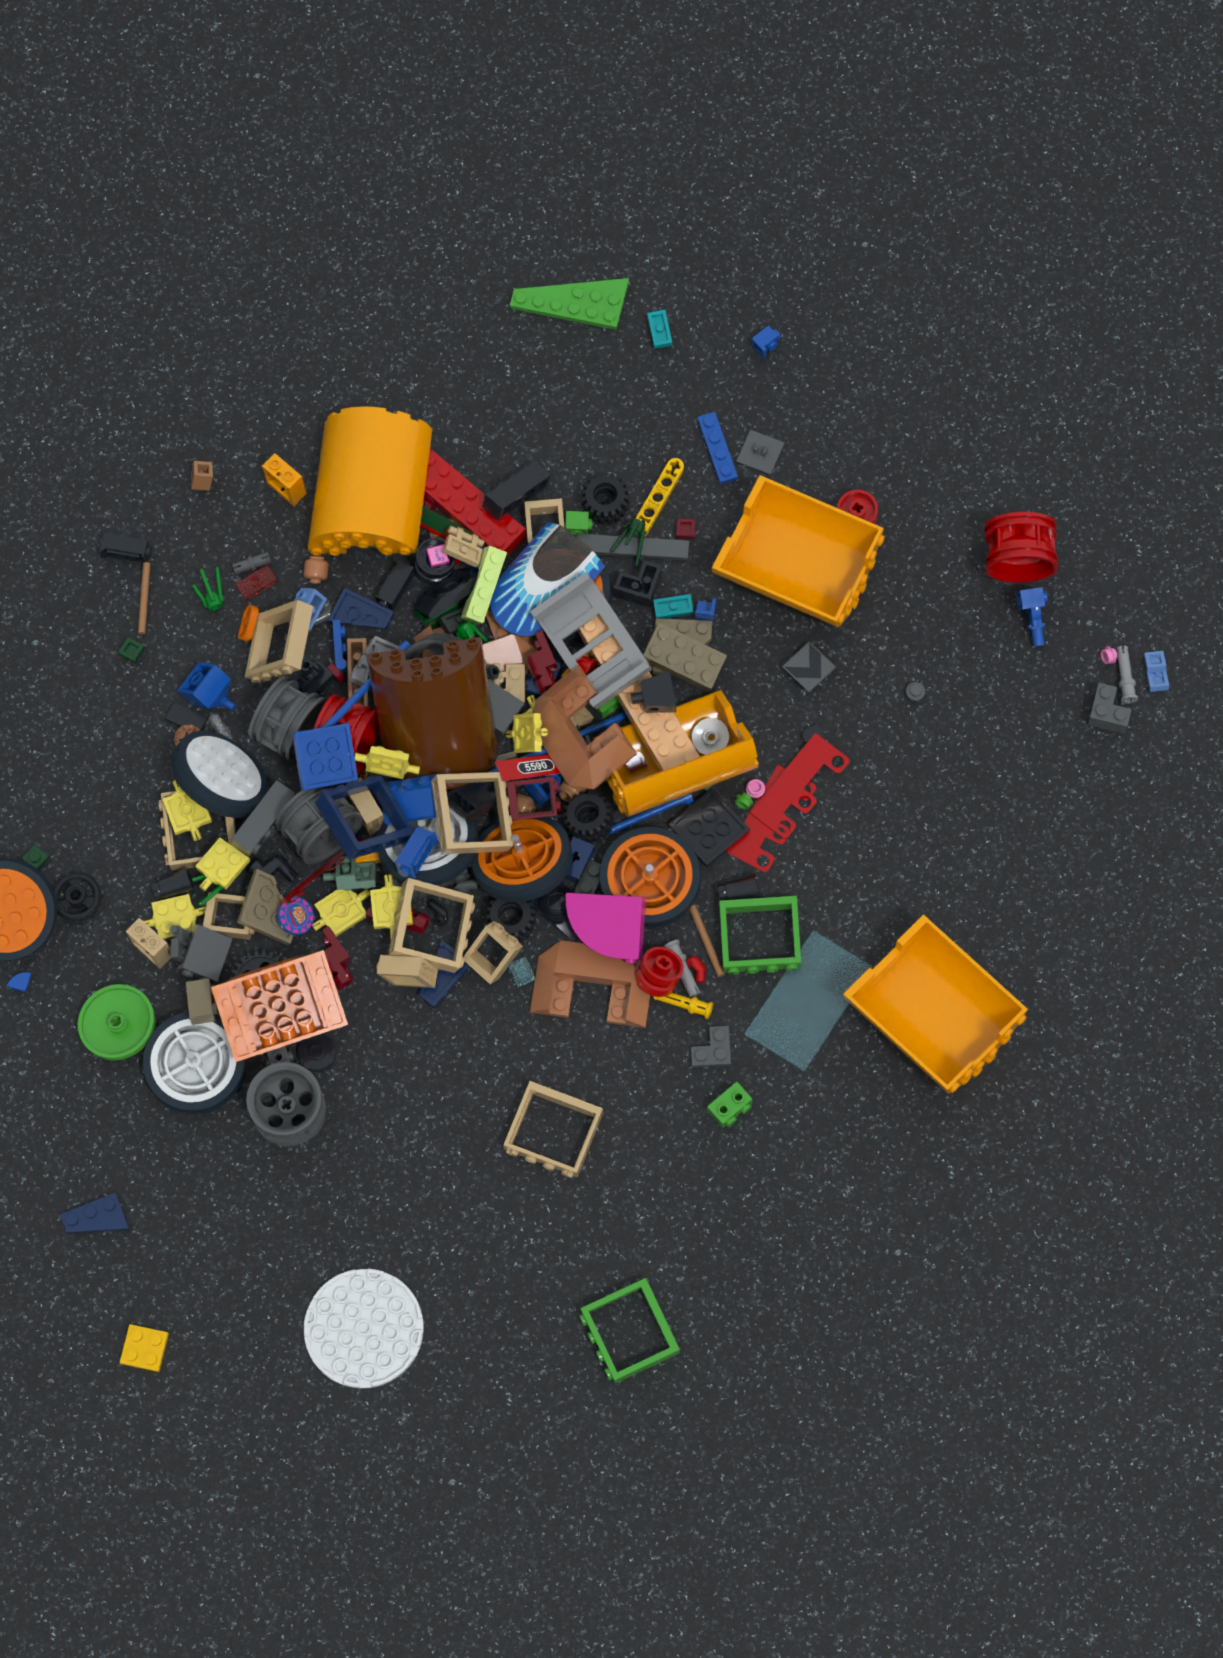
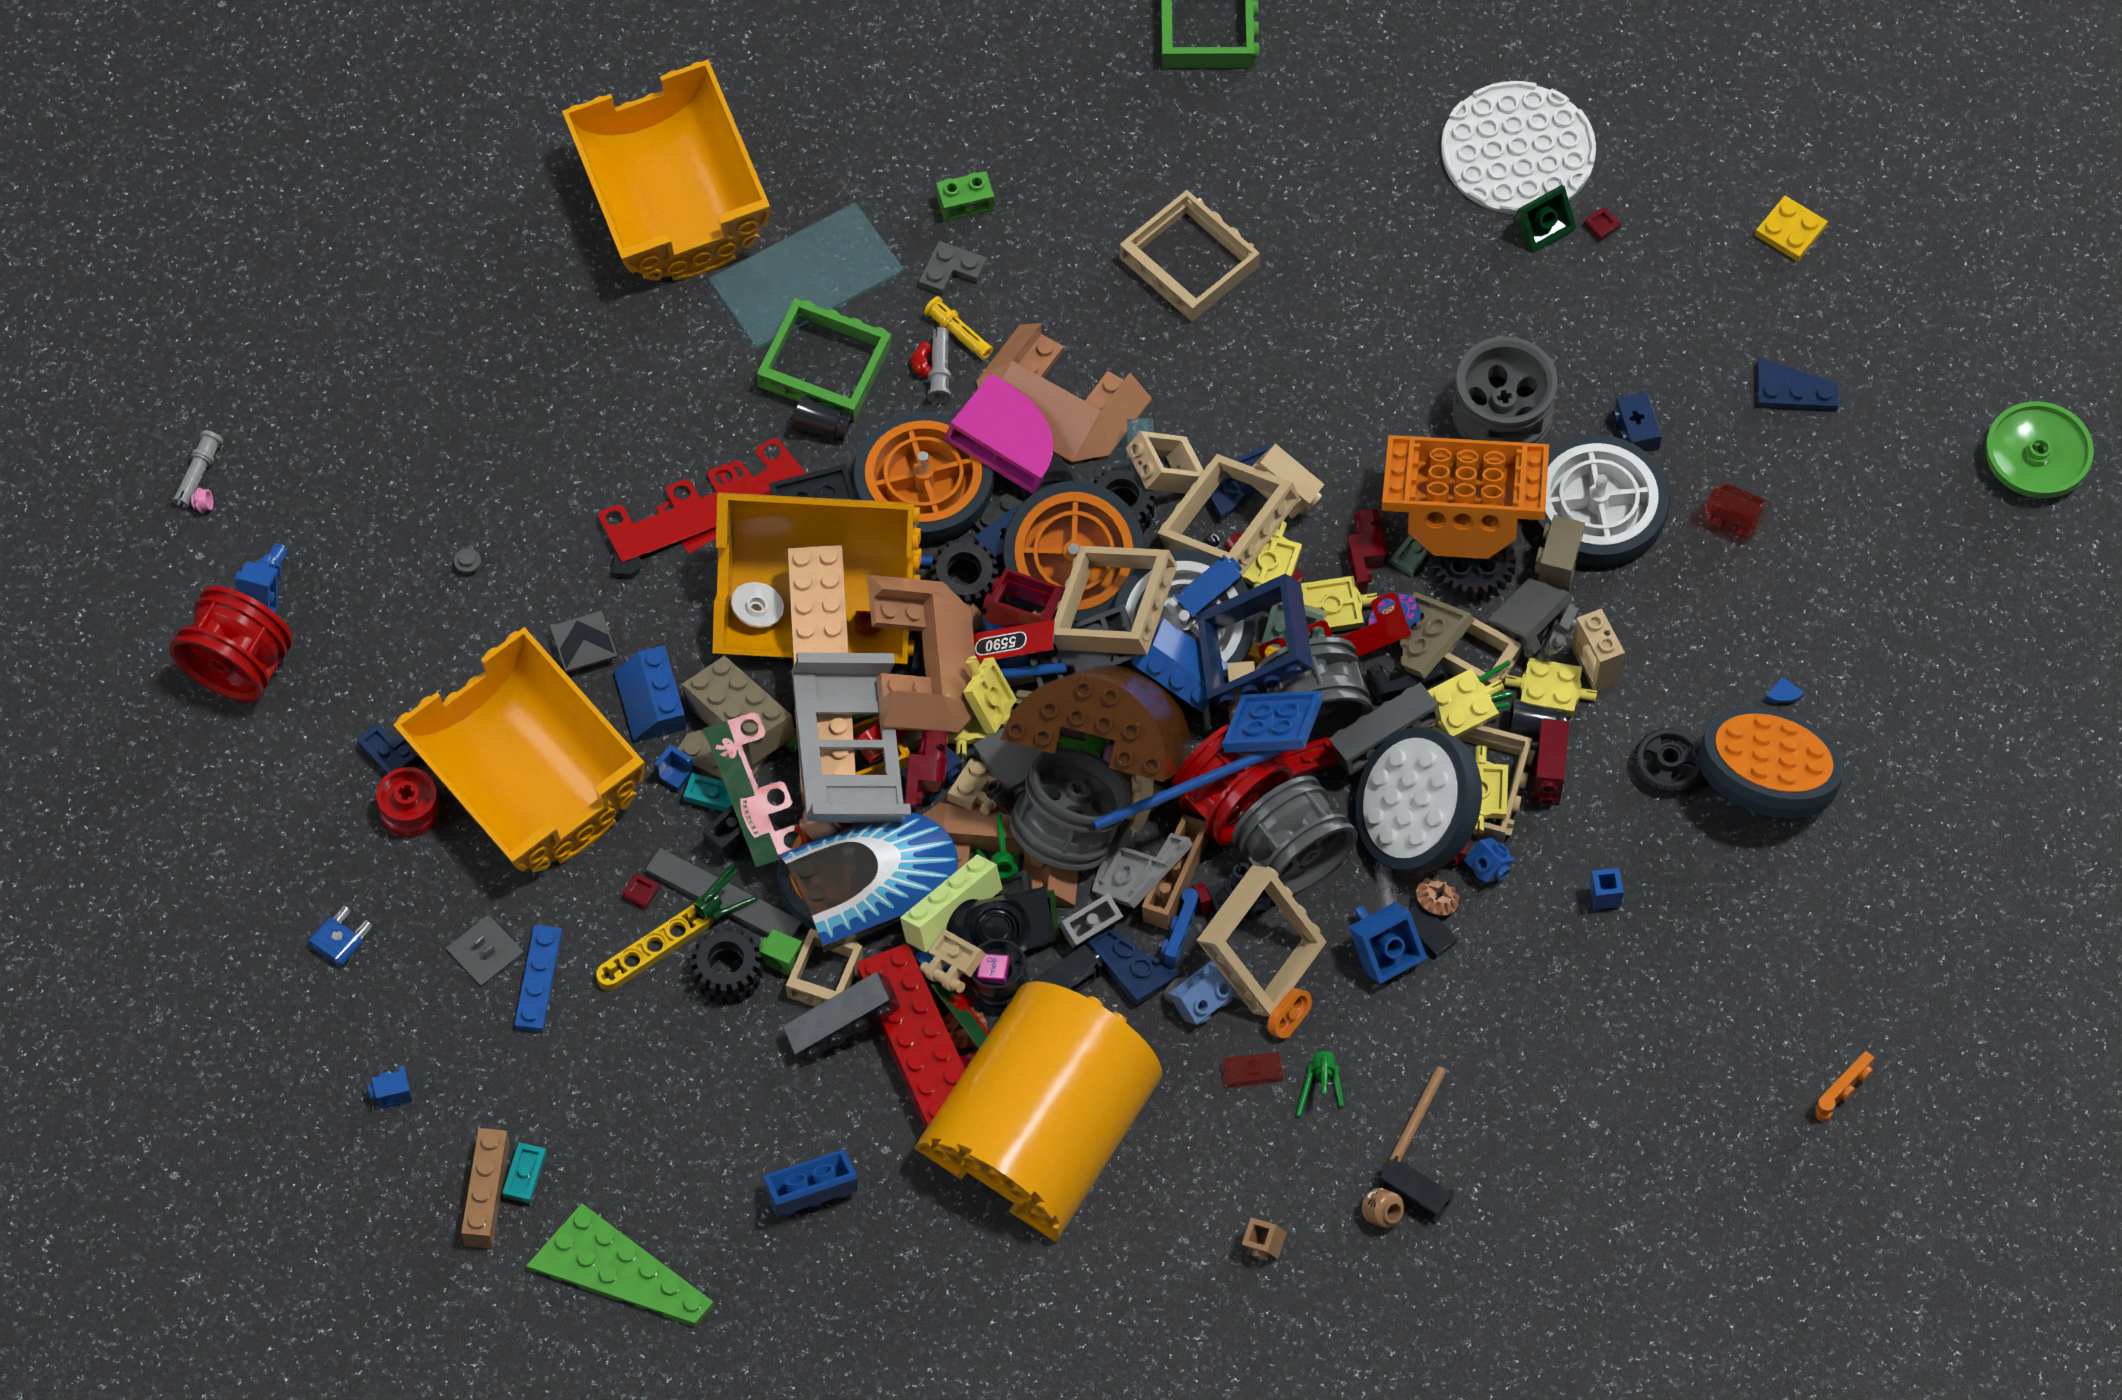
camera: 160 degrees left, 10 degrees down
(35, 857) = (1704, 837): dark green plate -> none
(82, 786) = (1606, 888): none -> blue brick
(98, 1100) = (1737, 508): none -> clear red brick
(116, 1022) = (1678, 583): bright green dish -> none
(131, 650) = (1464, 1048): dark green plate -> none
(139, 525) = (1382, 1208): none -> medium nougat head
(150, 853) = (1550, 762): none -> dark red window
(161, 774) = (1490, 860): none -> blue brick
(183, 1129) = (1637, 421): none -> dark blue brick
(251, 563) = (1247, 1095): dark grey pin -> none
(279, 1291) = (1602, 224): none -> dark red tile
(281, 475) = (1152, 1176): light orange window -> none
(315, 569) = (1166, 1043): nougat head -> none
(320, 1270) = (1545, 218): none -> dark green slope
(387, 762) = (1192, 700): light yellow plate -> none
(396, 622) = (1090, 920): none -> light grey brick
(483, 385) = (811, 1183): none -> blue slope
(641, 590) = (747, 799): none -> piece
(656, 694) = (802, 634): black torso -> none
(659, 971) = (971, 356): red wheel -> none
(676, 308) = (485, 1188): none -> medium nougat brick
(706, 941) = (893, 381): medium nougat bar -> none
(746, 652) = (650, 695): none -> blue slope
(851, 415) = (336, 940): none -> blue piece
(892, 544) = (385, 751): none -> dark blue plate
(1107, 715) = (250, 434): dark grey brick -> none
(1156, 671) = (157, 460): medium blue slope -> none

